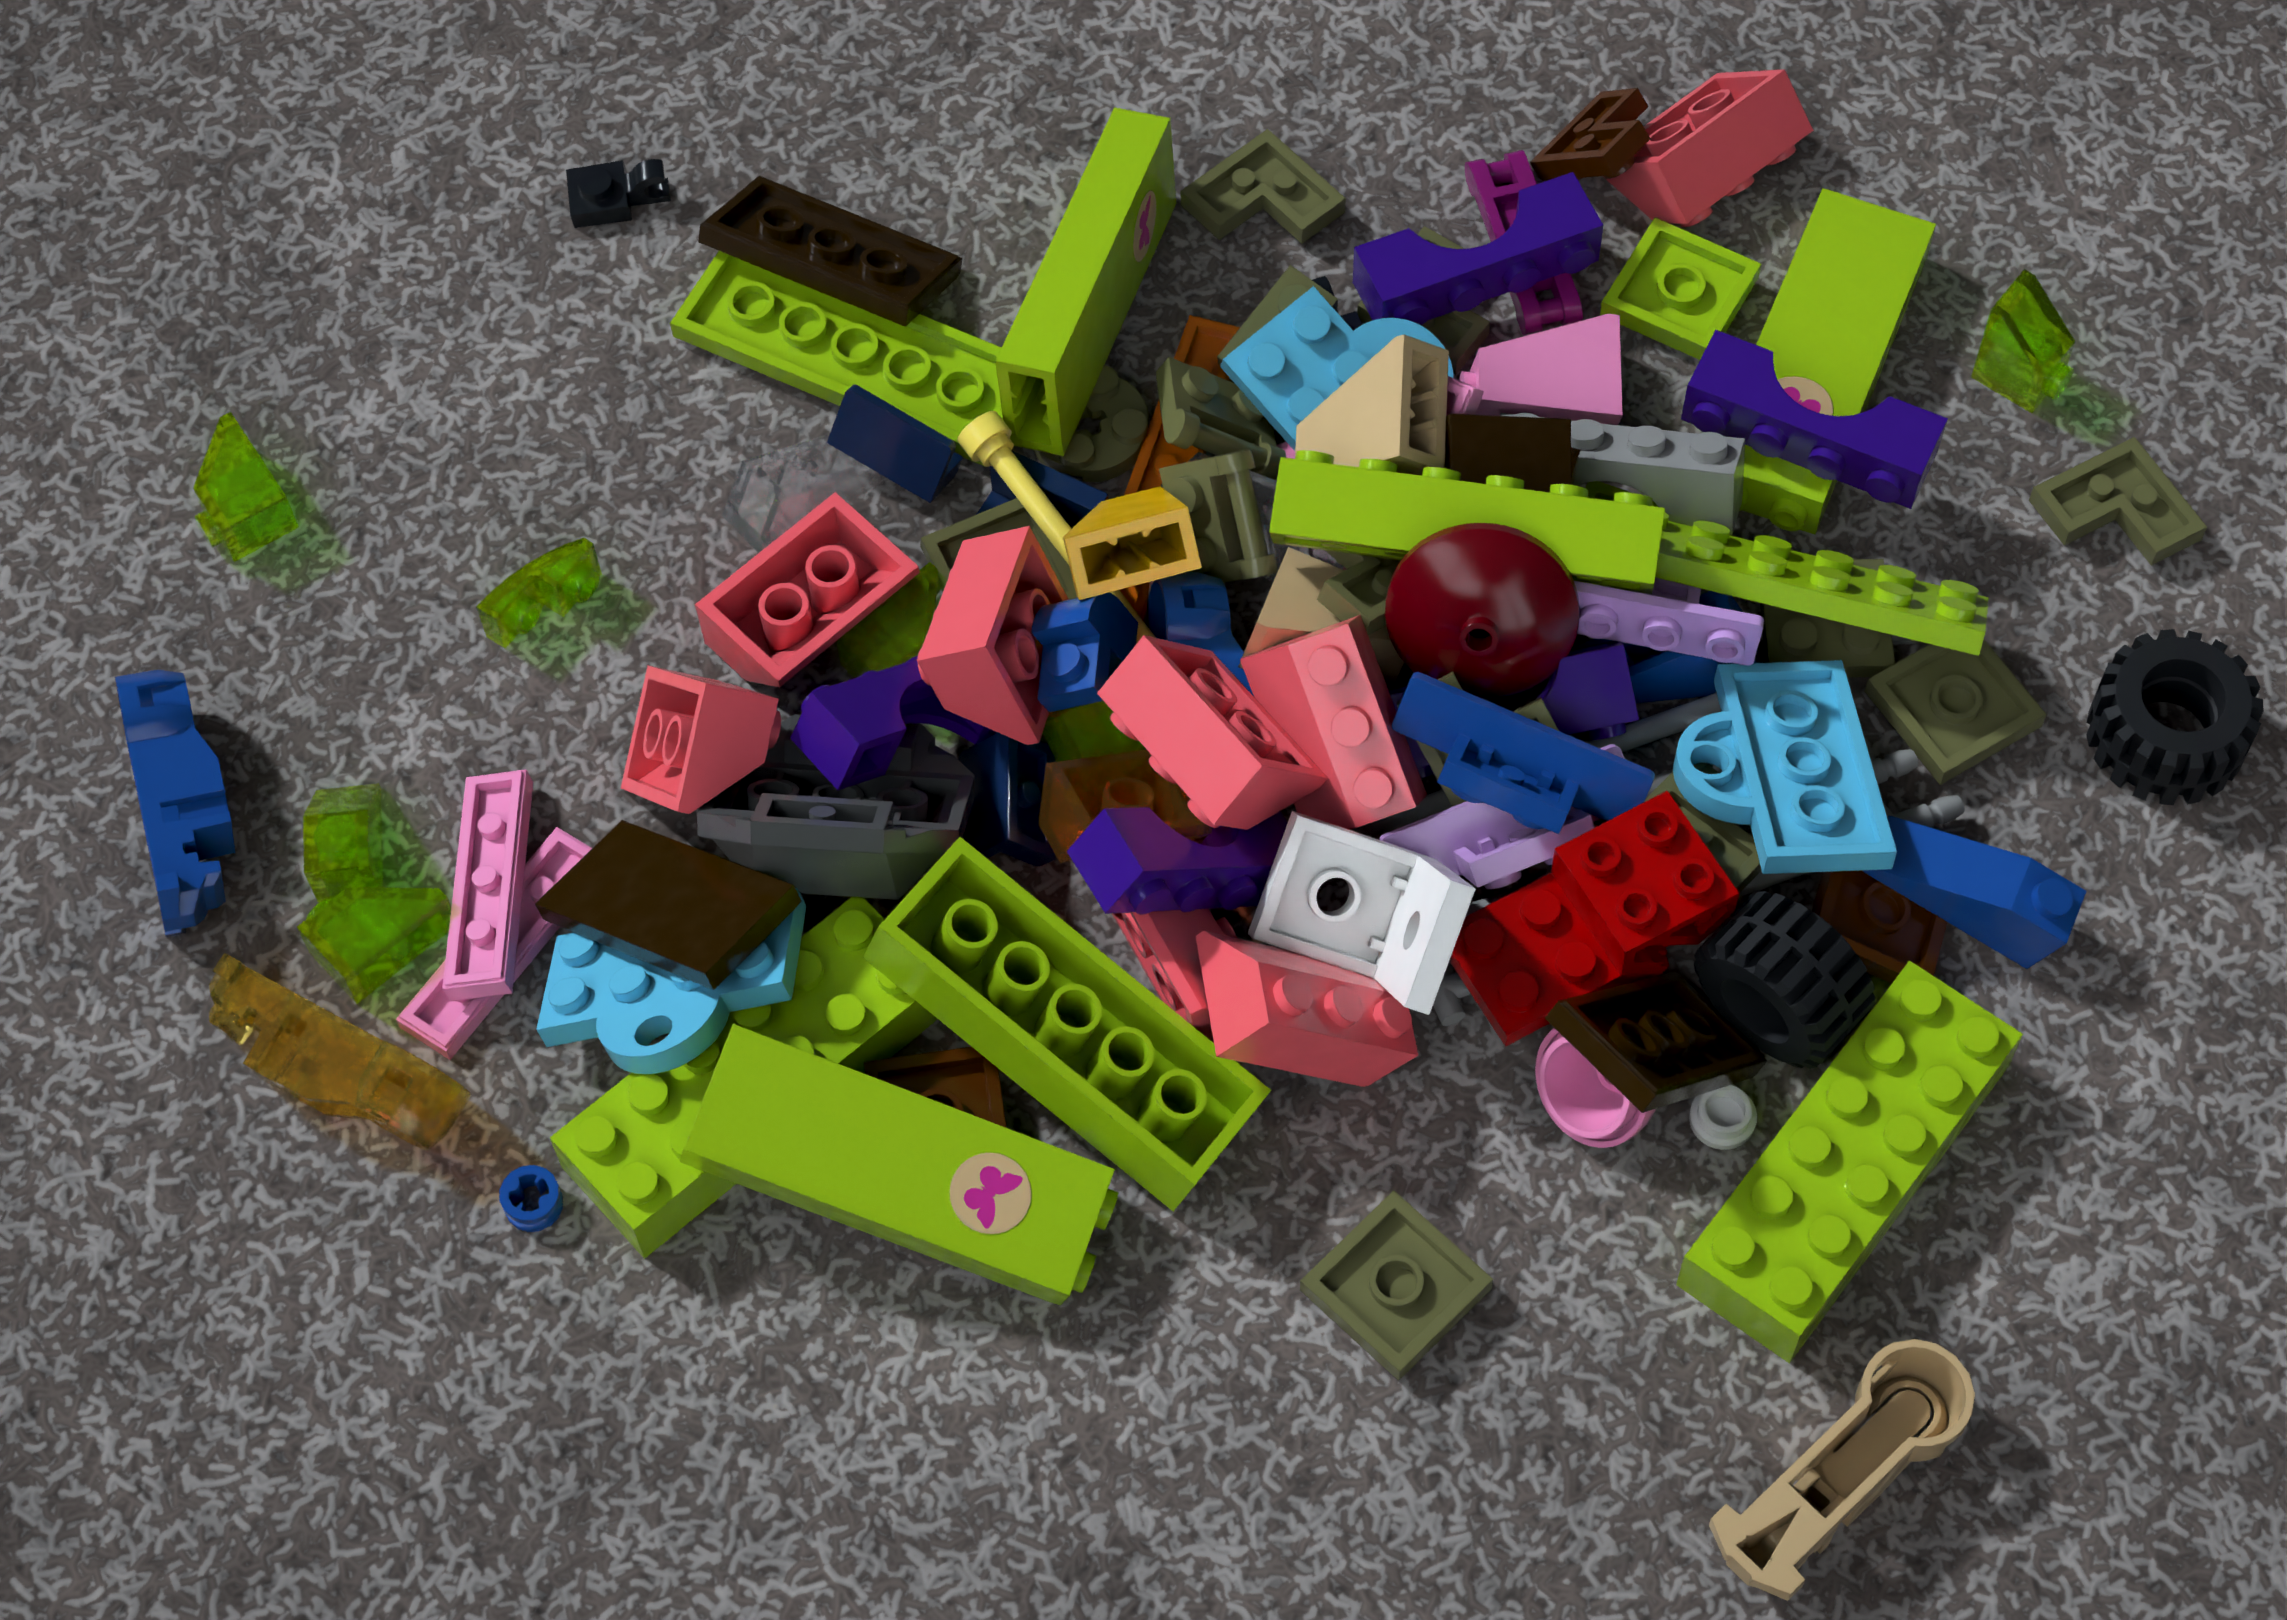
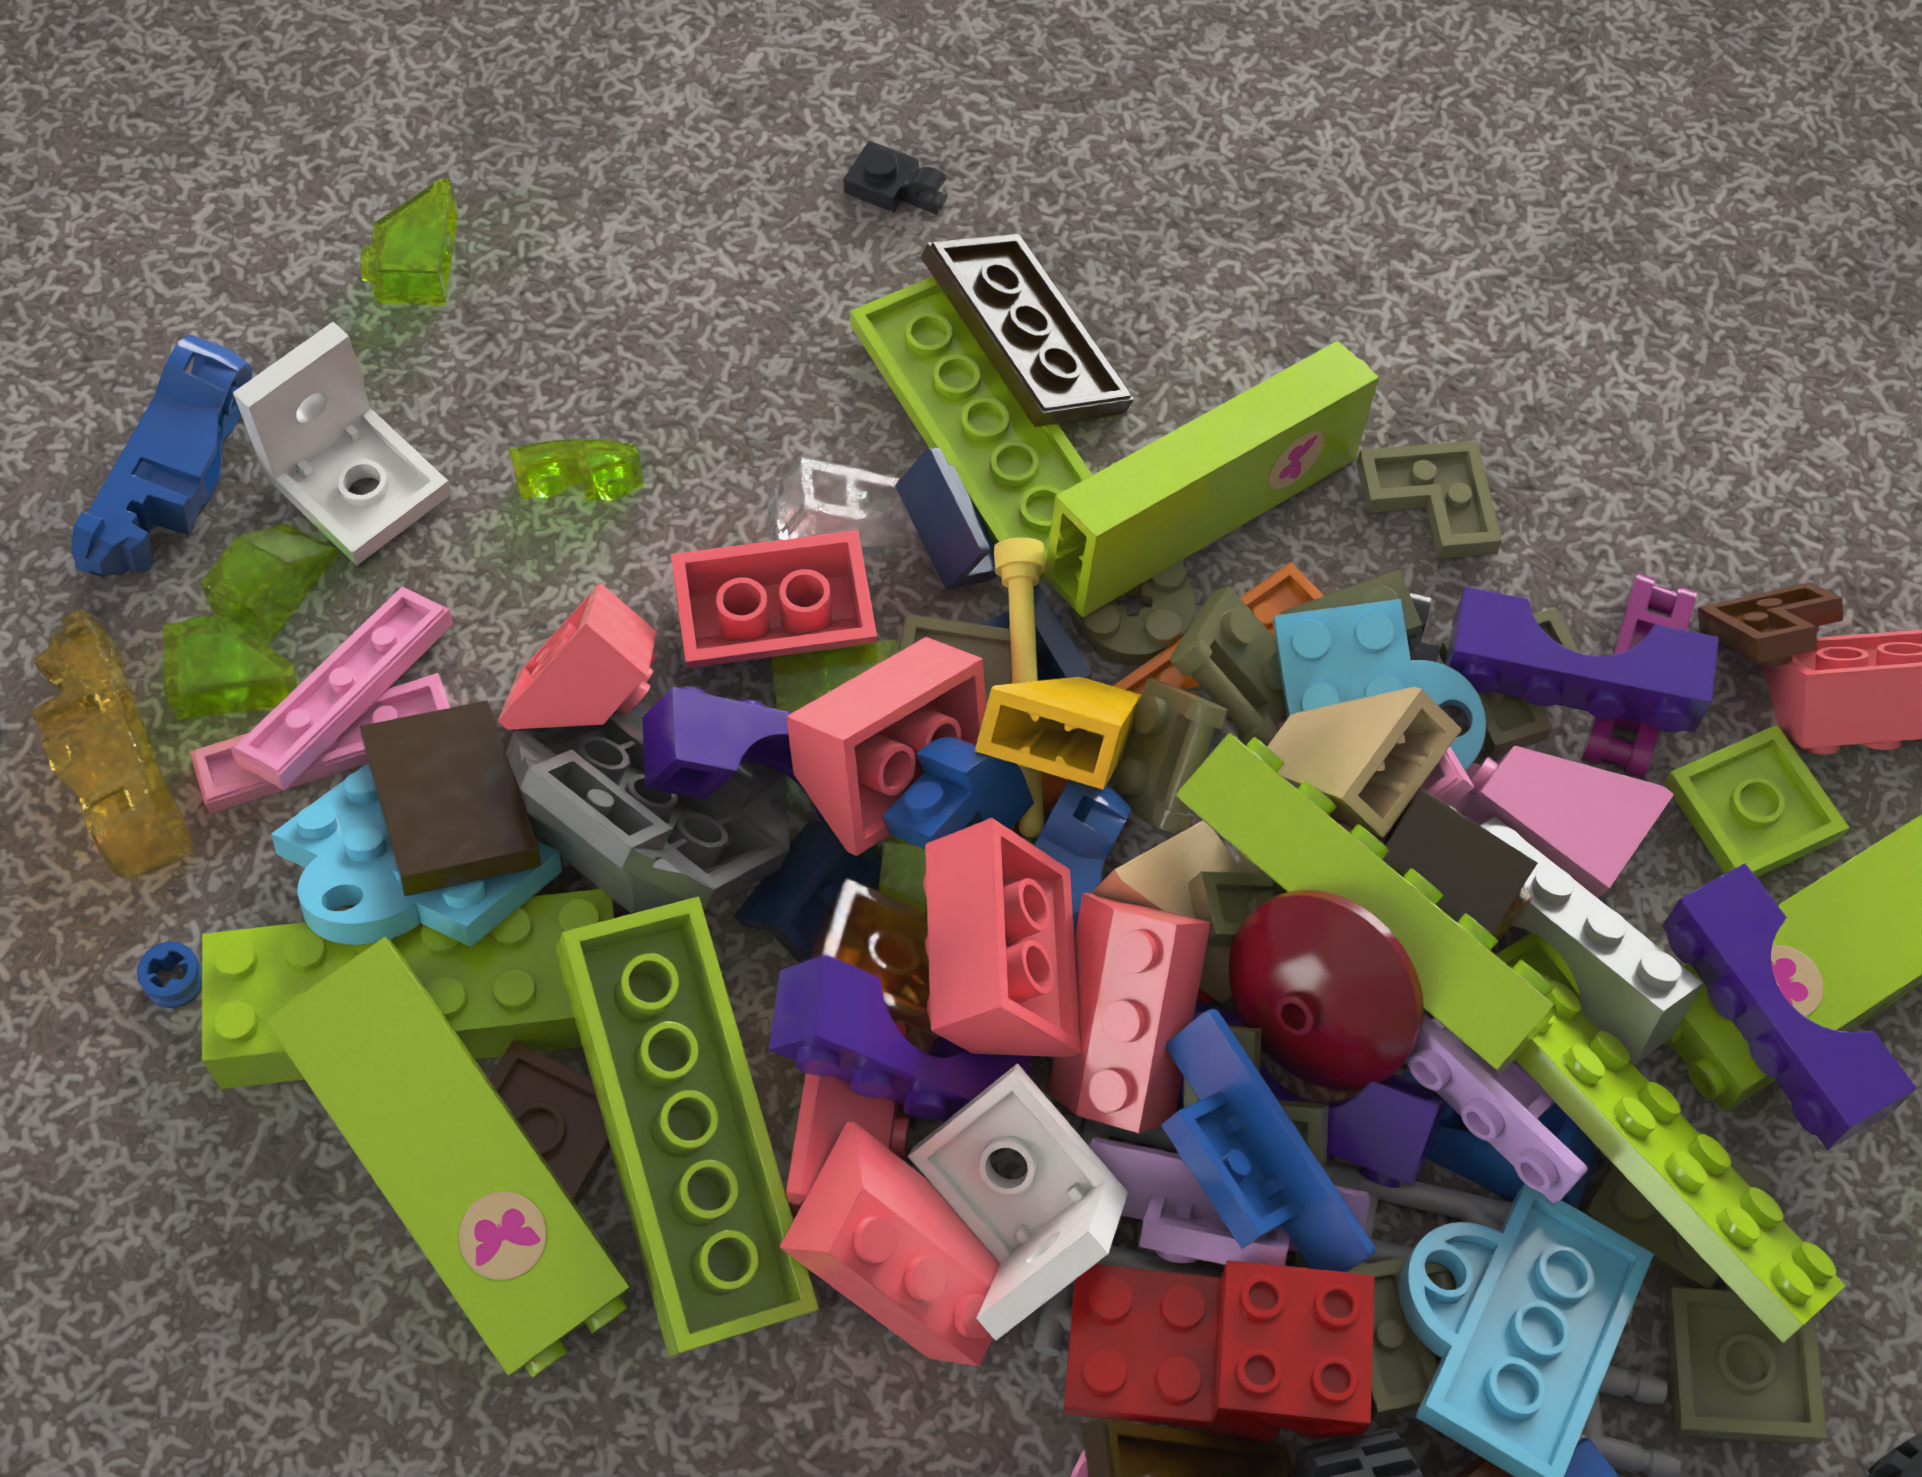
camera: 30 degrees right, 0 degrees up
(302, 696) = (322, 436): none -> white bracket

